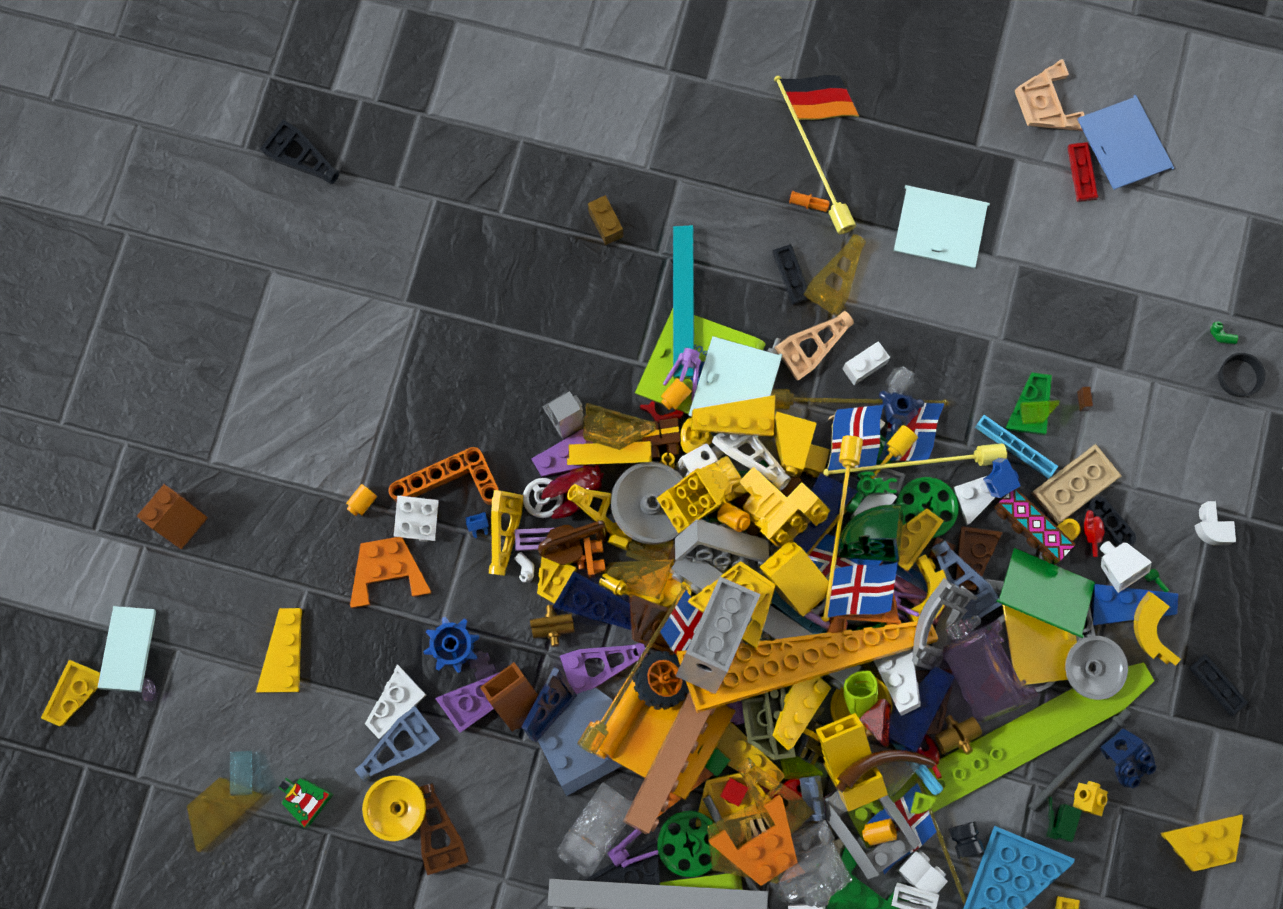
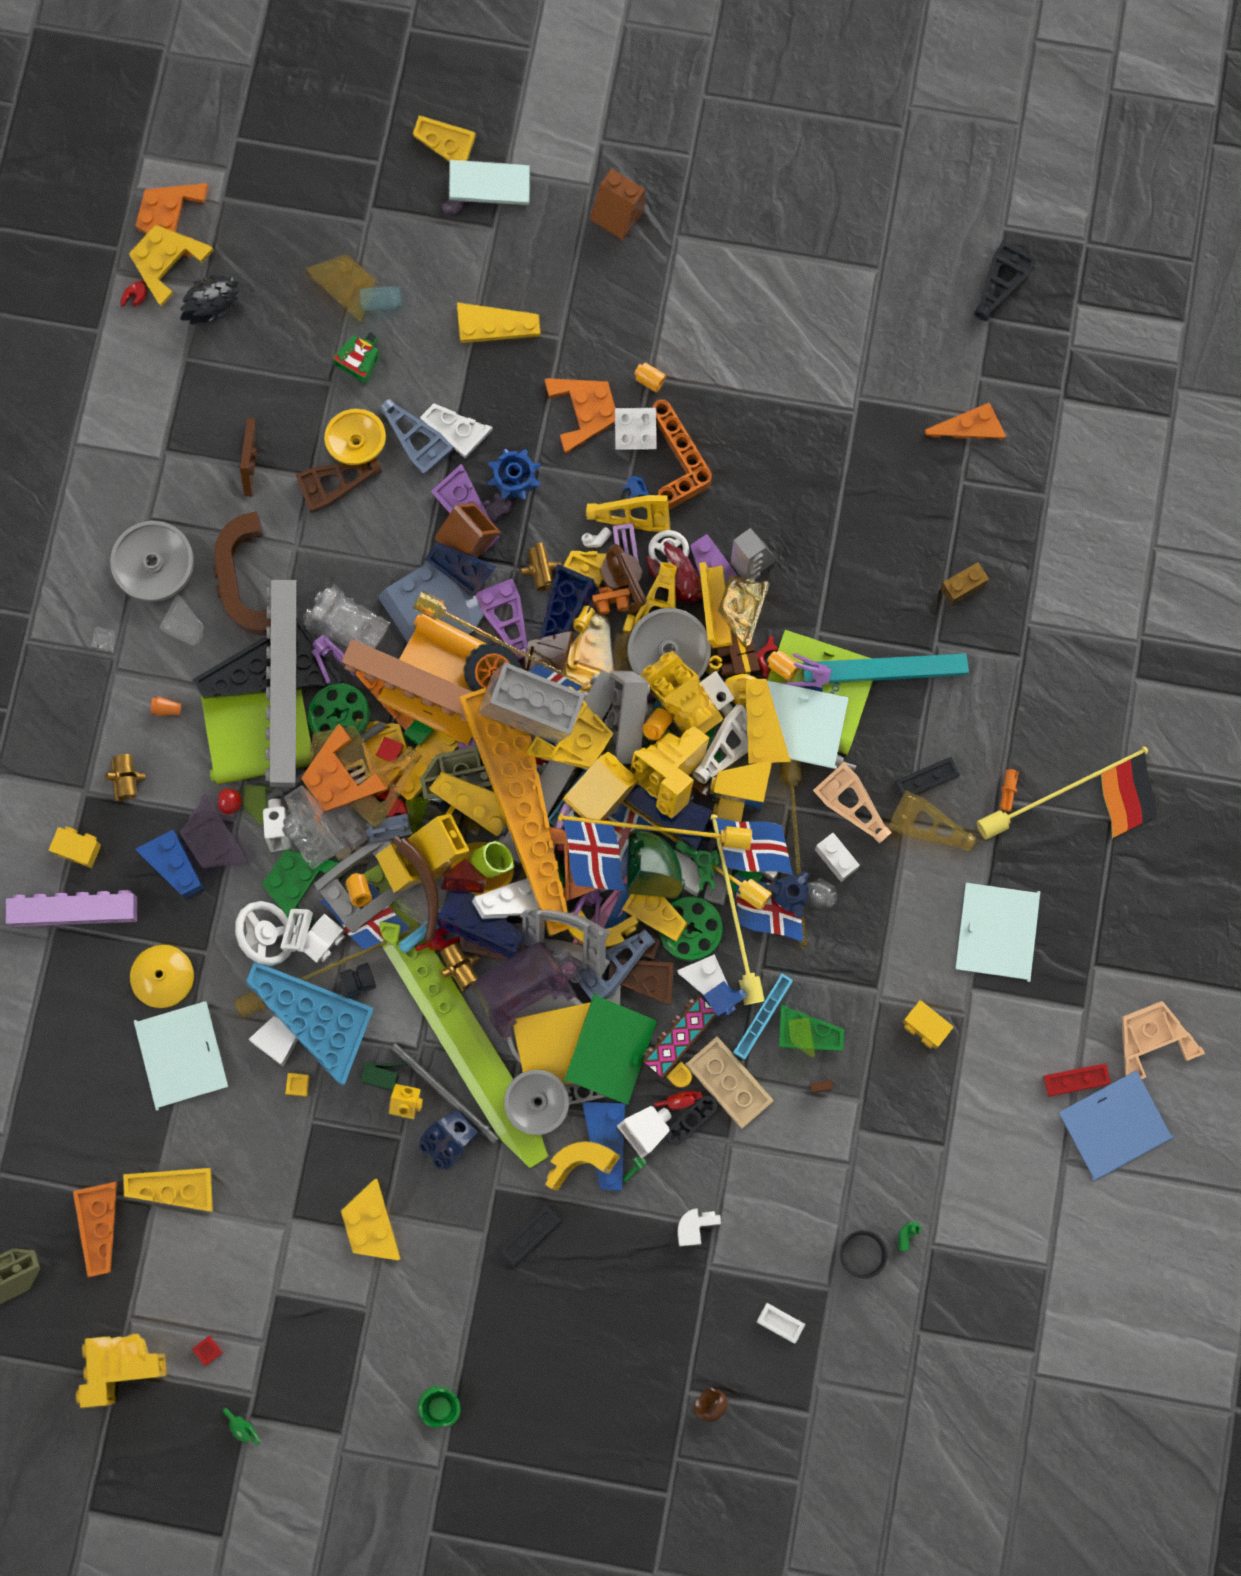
camera: 85 degrees right, 0 degrees up
(443, 194) = (976, 423): none -> orange wing
(1029, 296) = (927, 1025): none -> yellow brick

